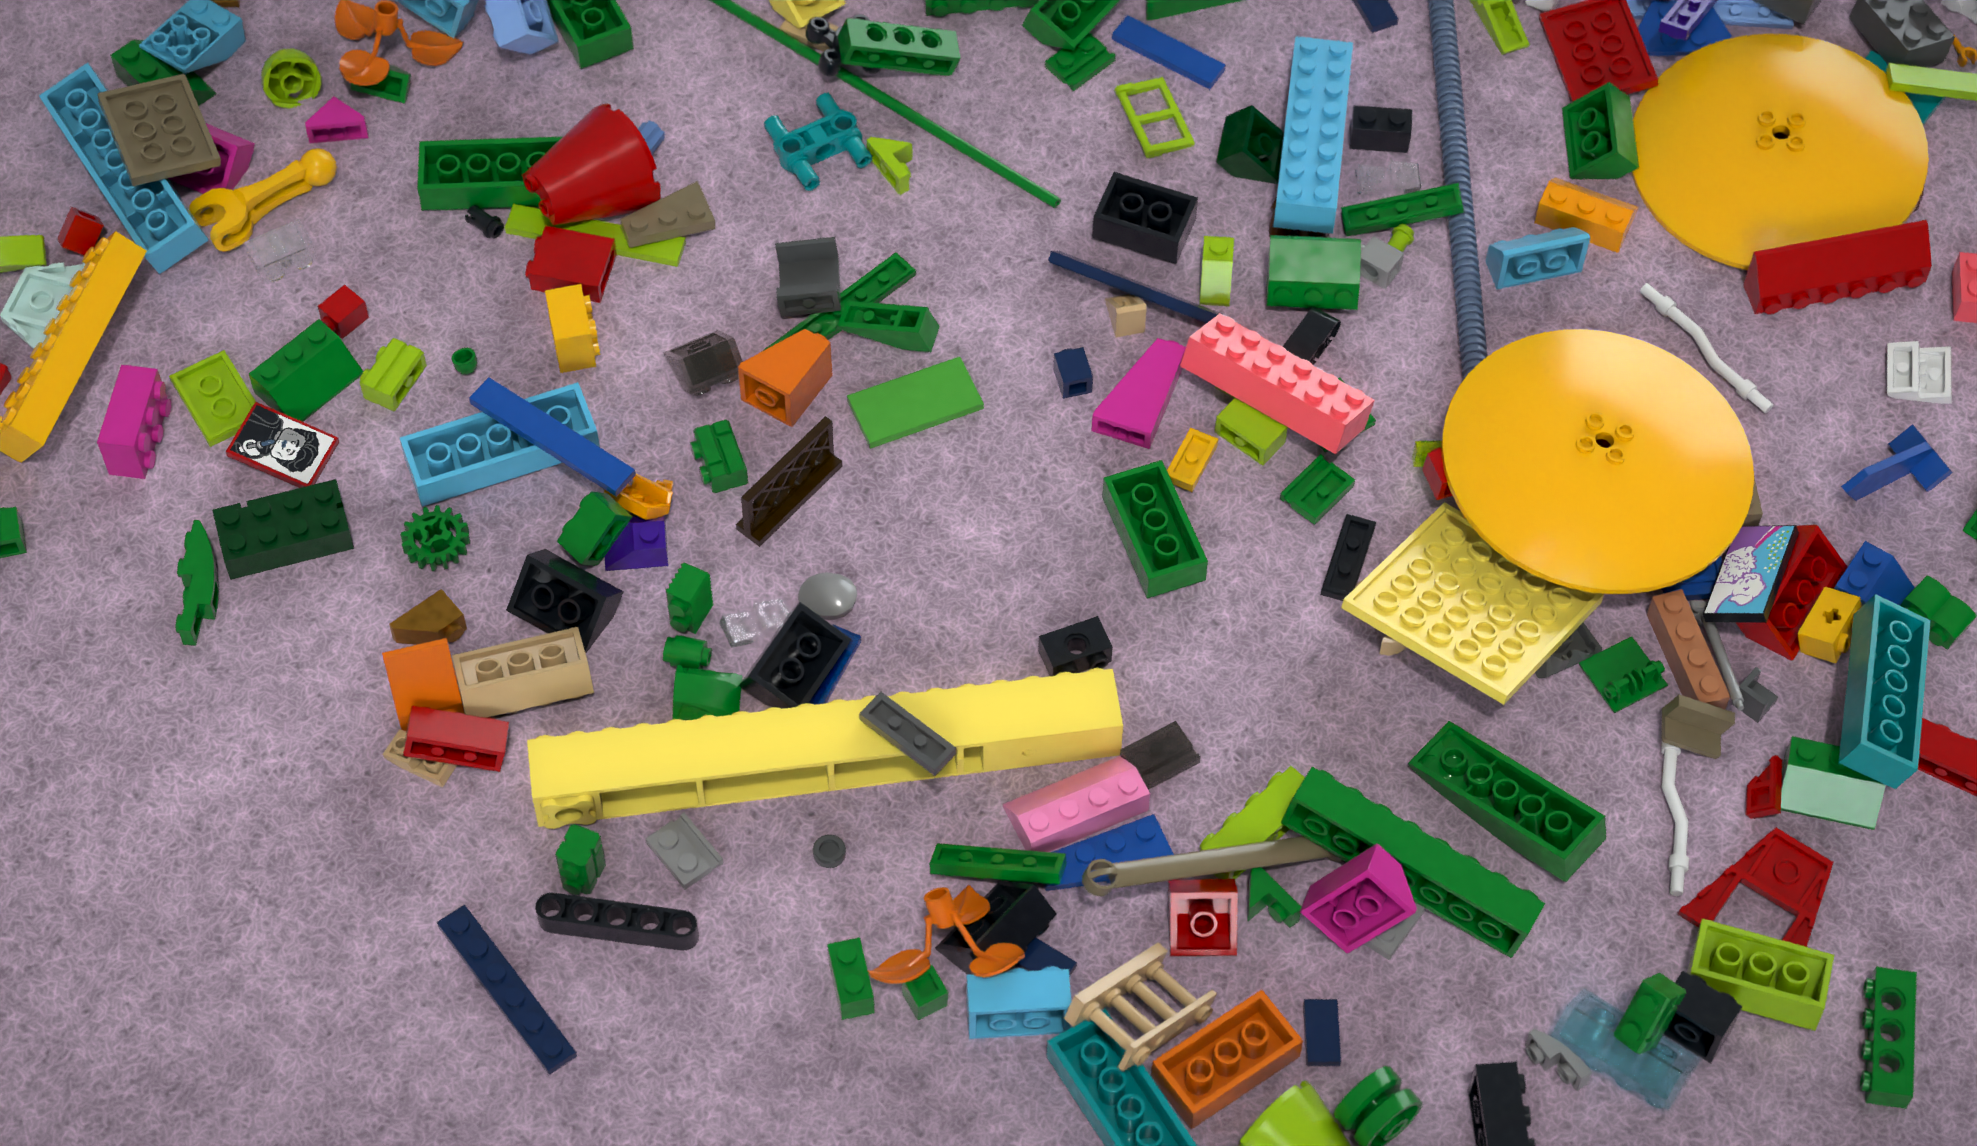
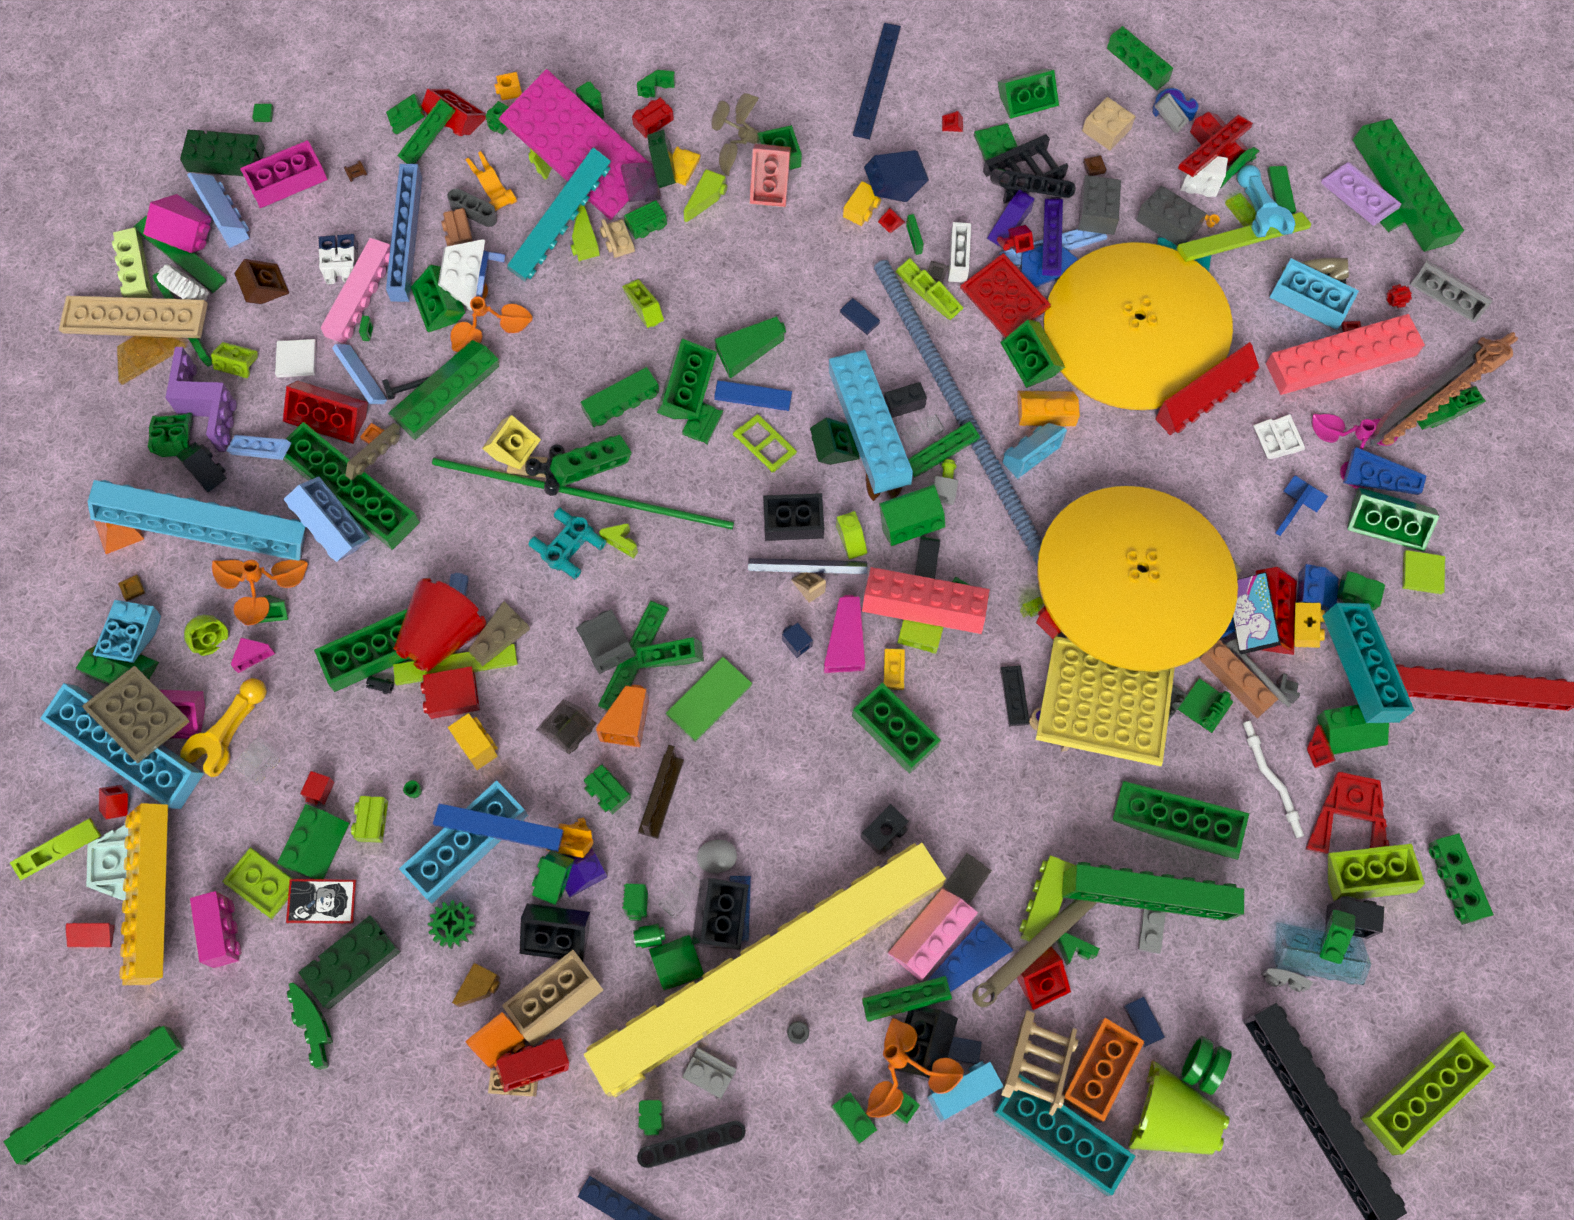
camera: 25 degrees left, 10 degrees up
(907, 733) = (821, 945): dark grey plate -> none
(1317, 489) = (977, 658): green plate -> none
(1360, 899) = (1134, 931): dark pink slope -> none
(1695, 725) = (1264, 725): dark tan panel -> none
(1744, 388) = (1188, 487): white bar -> none

